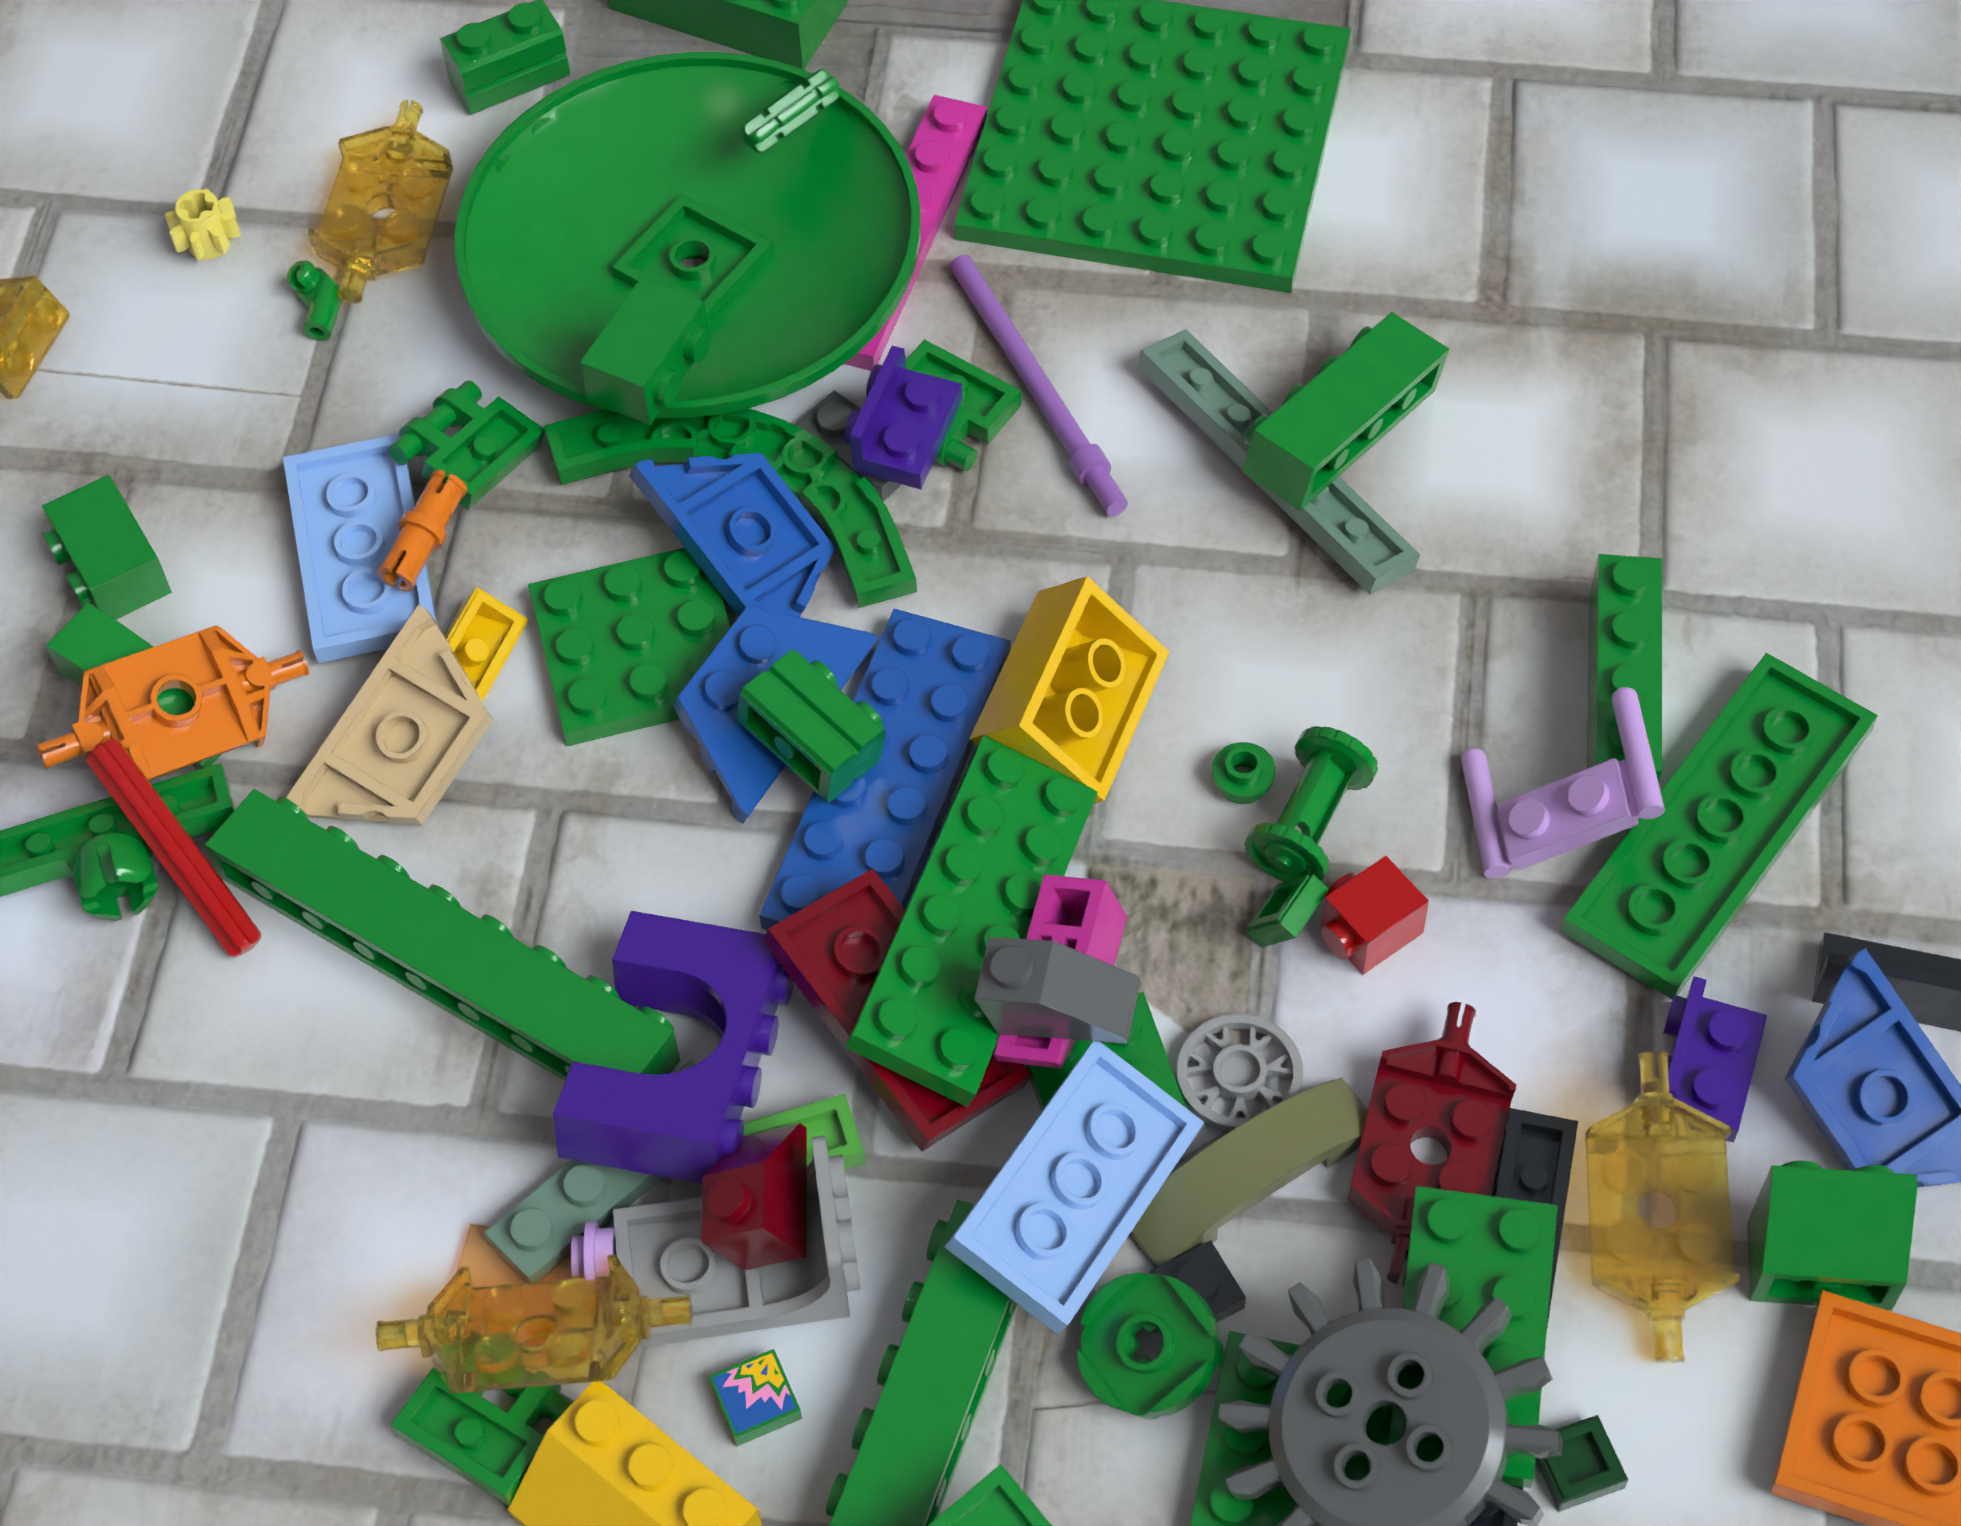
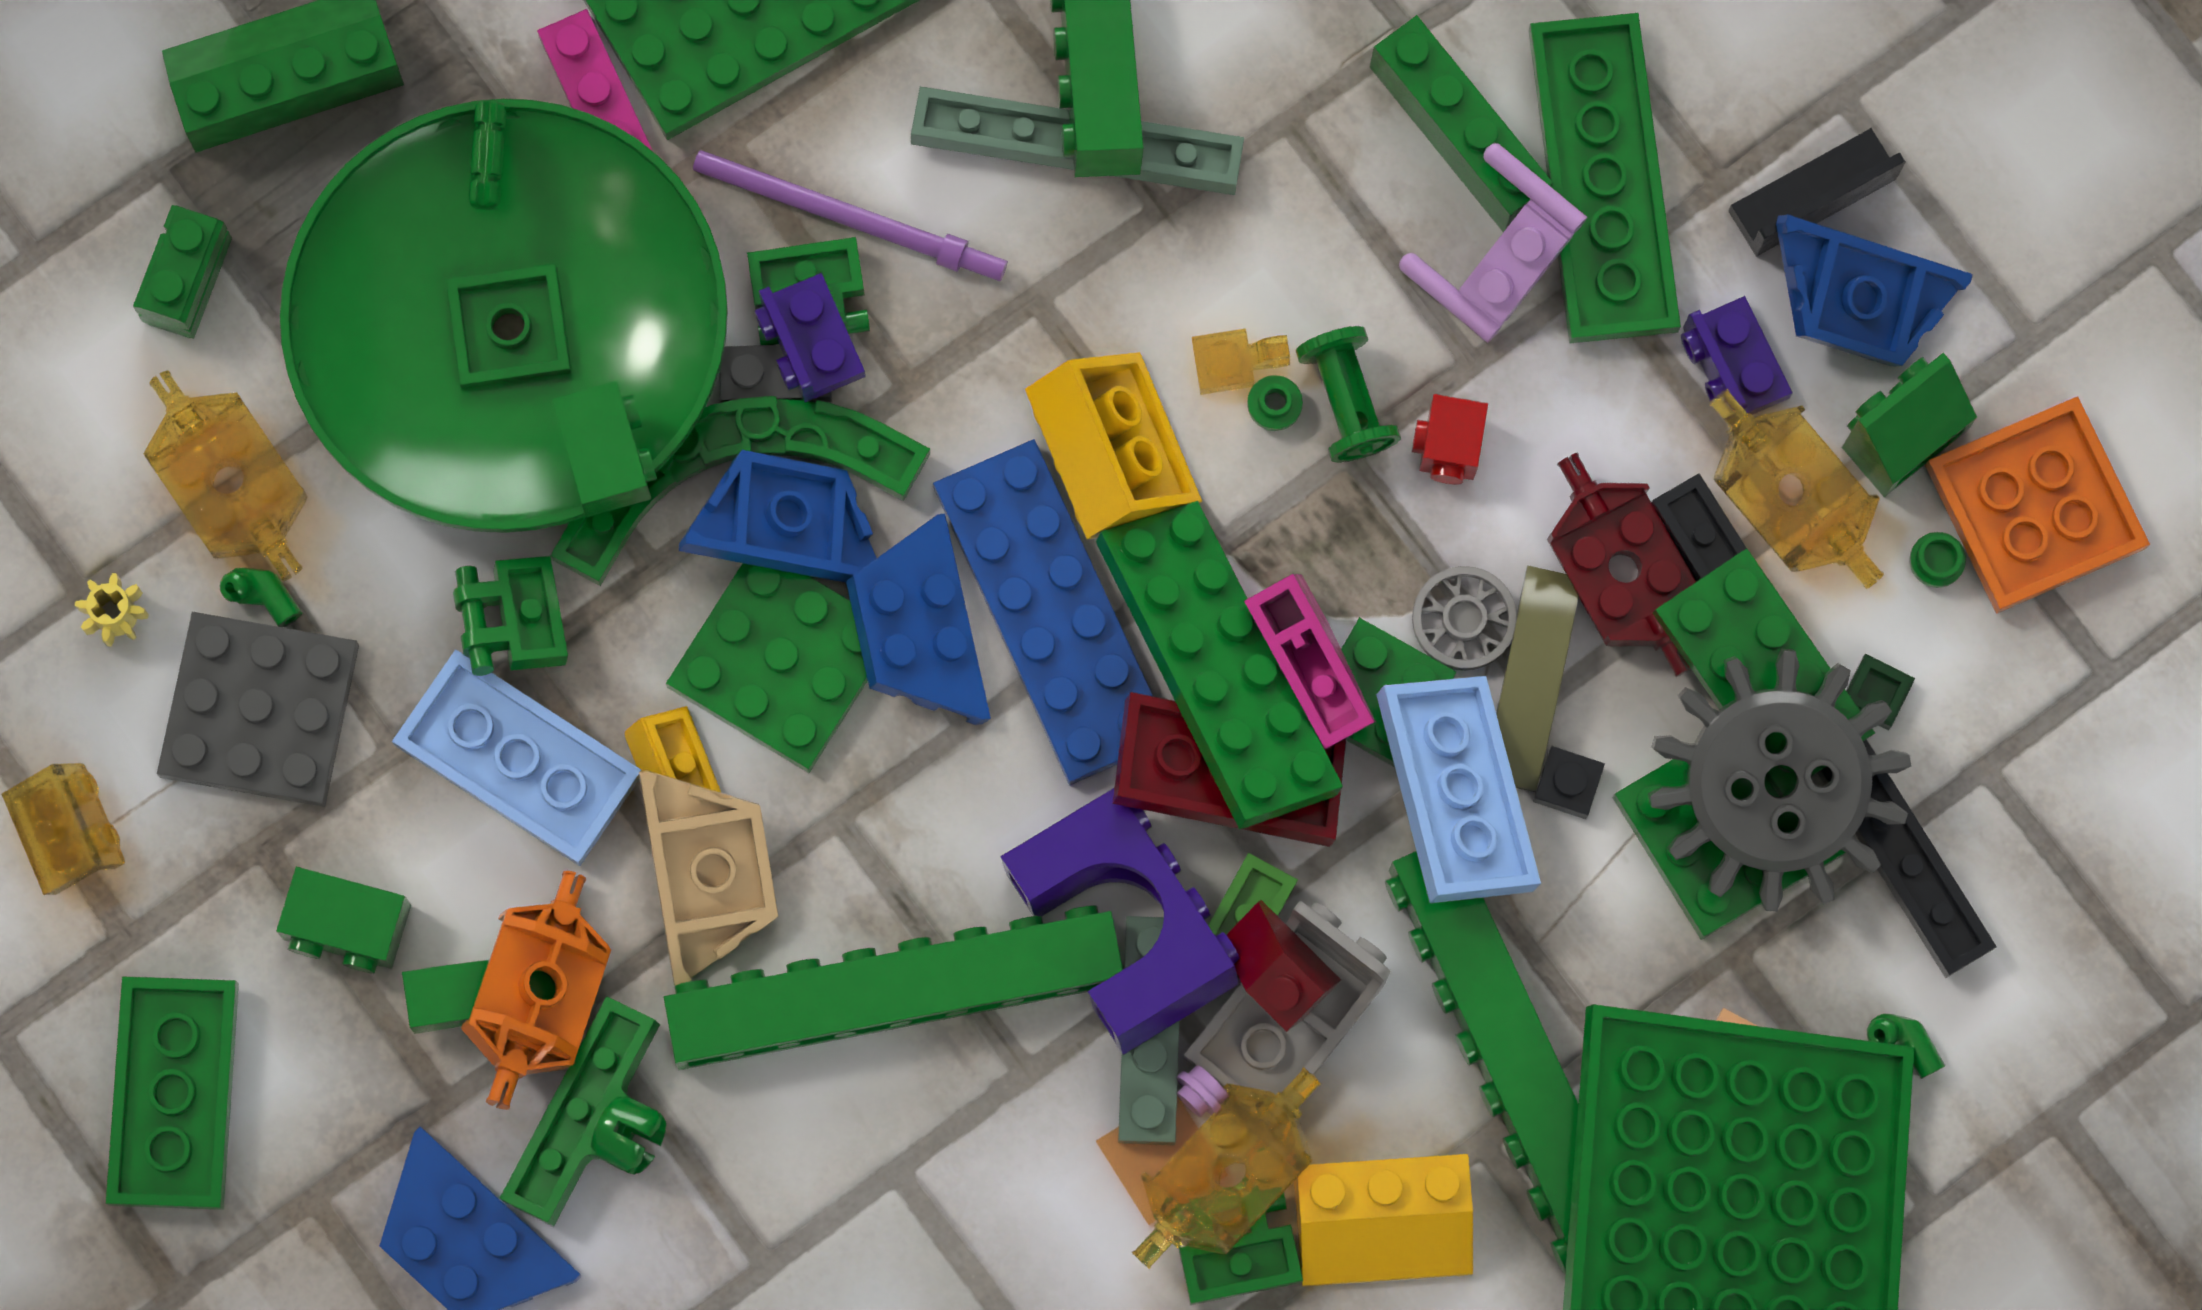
camera: 50 degrees left, 20 degrees up
(174, 848) = (652, 1082): red axle -> none
(225, 372) = (258, 709): none -> dark grey plate
(422, 530) = (567, 713): orange pin -> none
(755, 1397) = (1378, 1086): tile -> none
(812, 724) = (989, 624): green brick -> none
(1054, 992) = (1343, 679): dark grey slope -> none
(1187, 1352) = (1608, 827): green plate -> none
(1242, 712) = (1227, 360): none -> clear yellow plate
(1286, 910) = (1398, 482): green tile -> none
(1752, 1393) = (1937, 559): none -> green plate

